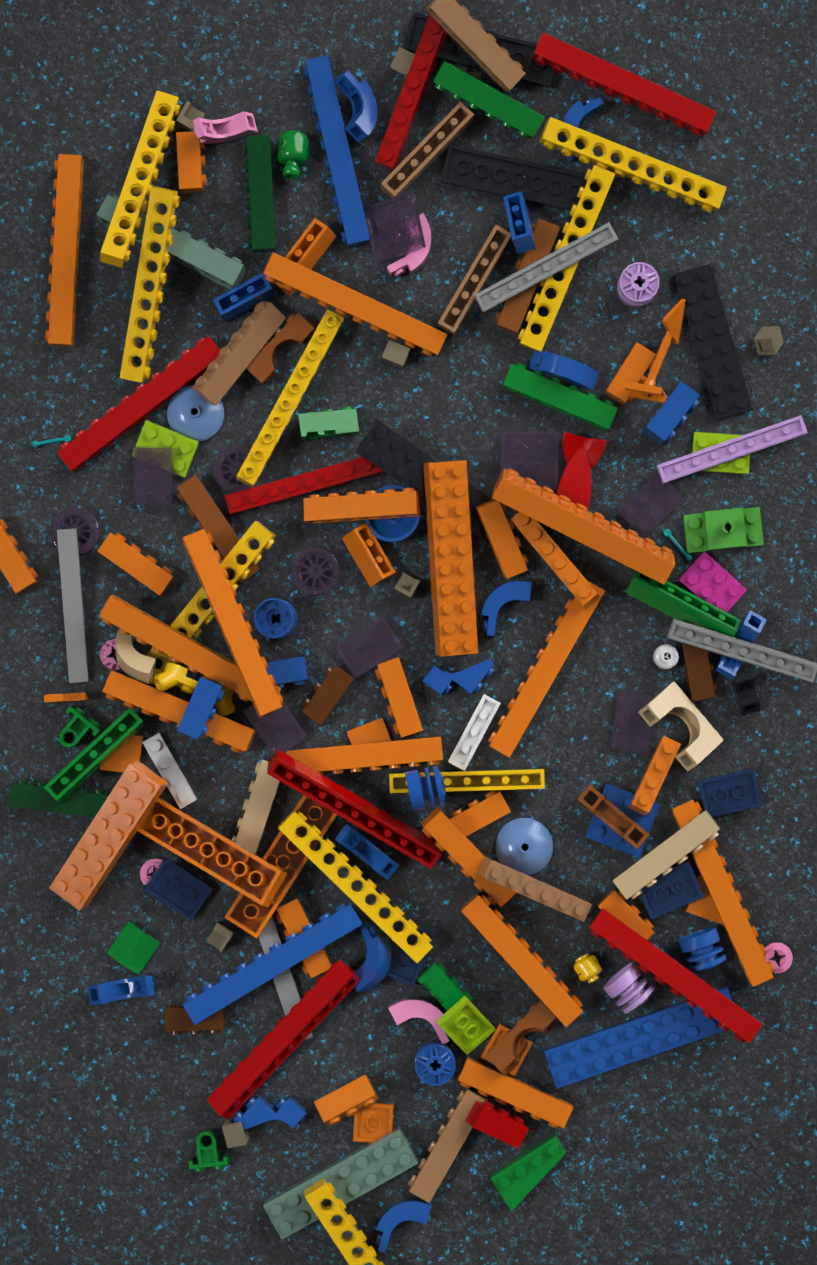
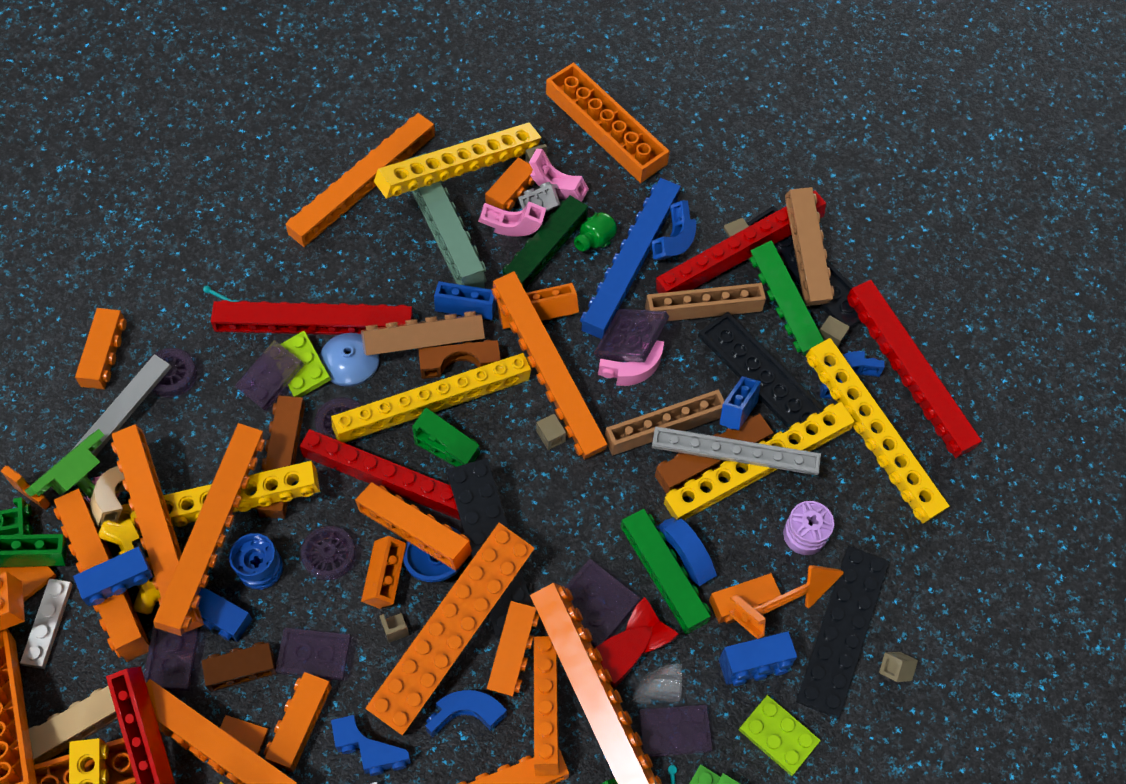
camera: 35 degrees right, 25 degrees down
(87, 660) = (71, 469): none -> bright green brick
(129, 369) = (399, 222): yellow brick -> none
(136, 564) = (190, 433): orange brick -> none
(217, 36) = (607, 122): none -> orange brick
(224, 194) = (513, 223): none -> bright pink arch
(225, 159) = (544, 196): none -> light grey bracket
(542, 98) = (833, 329): none -> dark tan panel
(618, 482) = (660, 684): none -> clear brick
(731, 449) = (793, 737): lavender tile -> none

